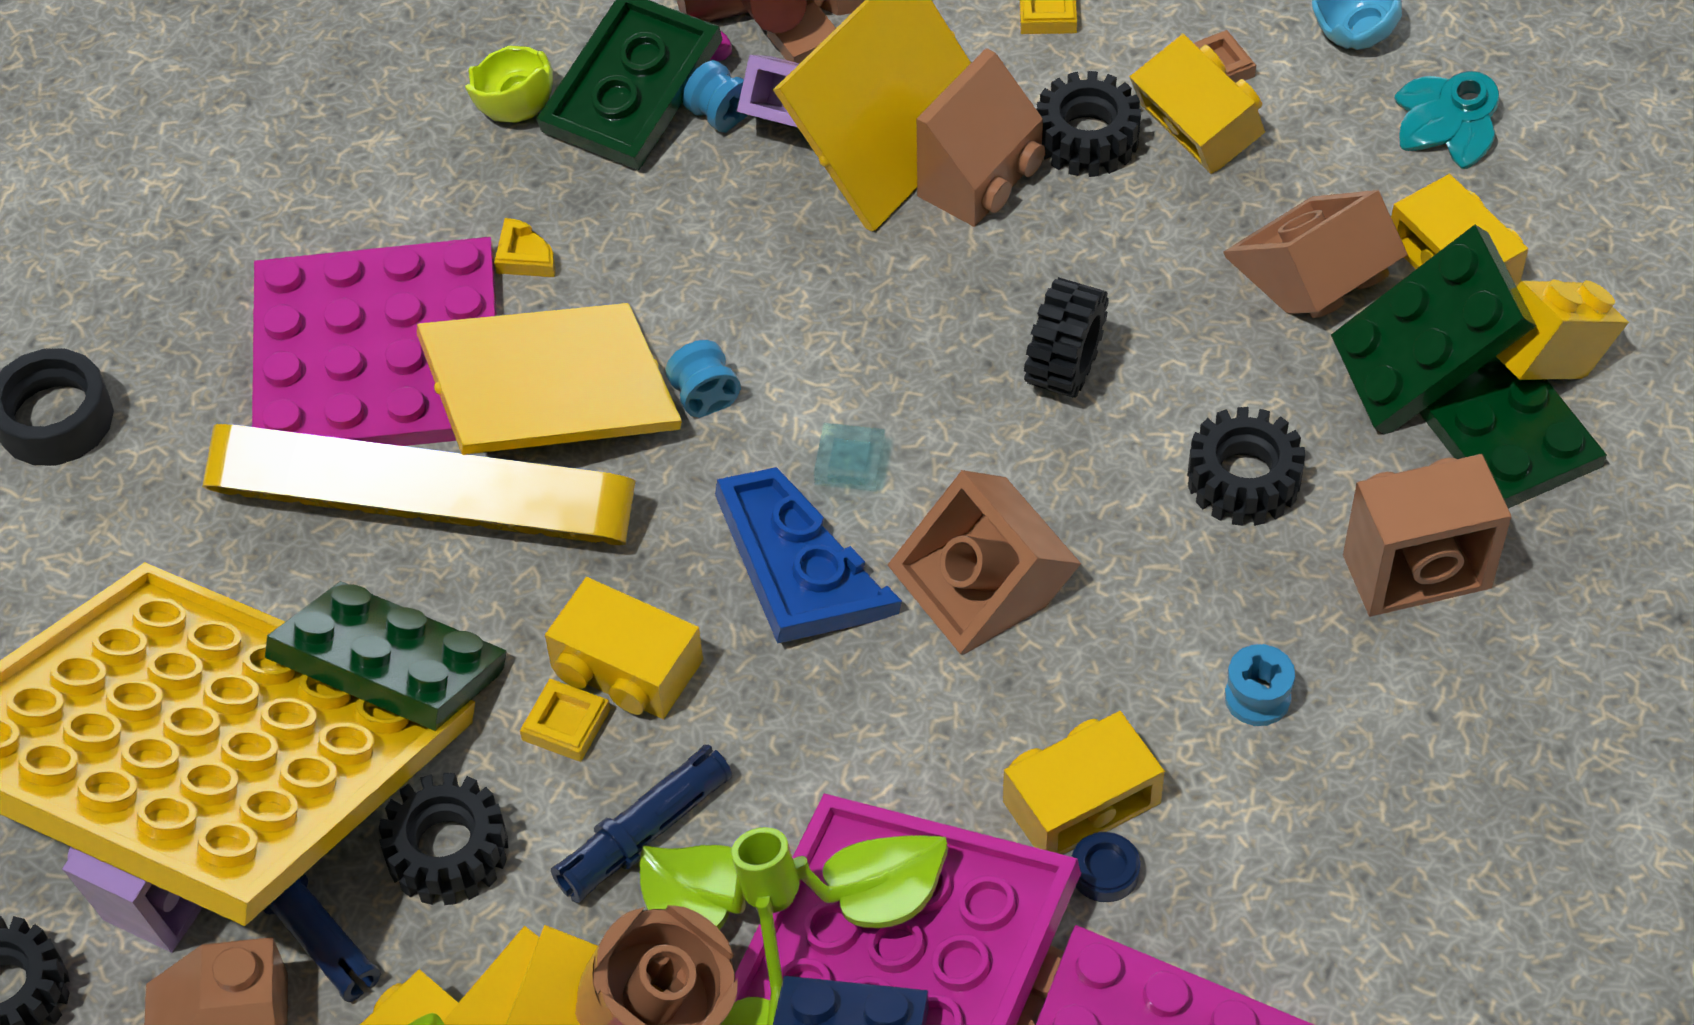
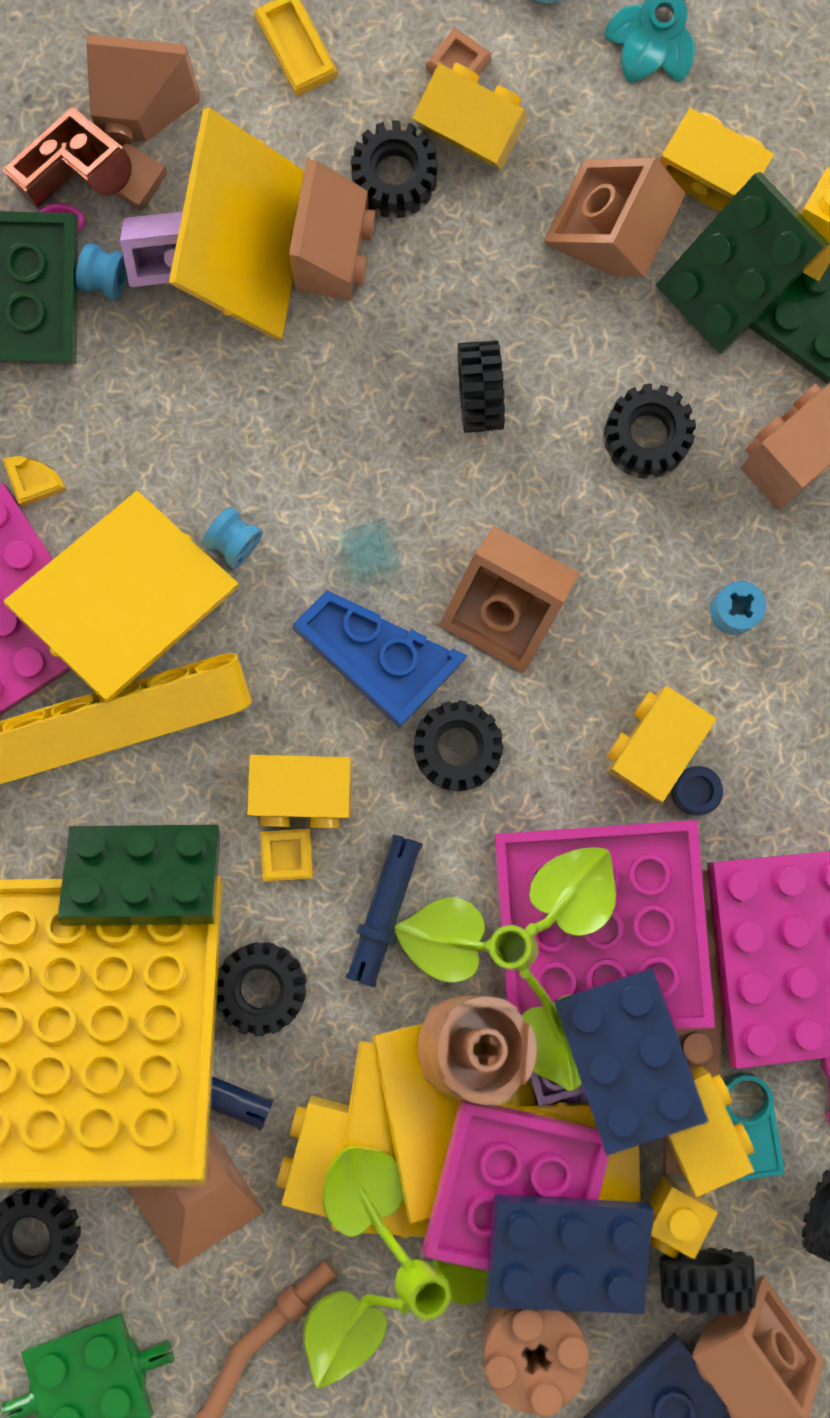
camera: 30 degrees left, 30 degrees up
(834, 719) = (464, 716): none -> black tyre

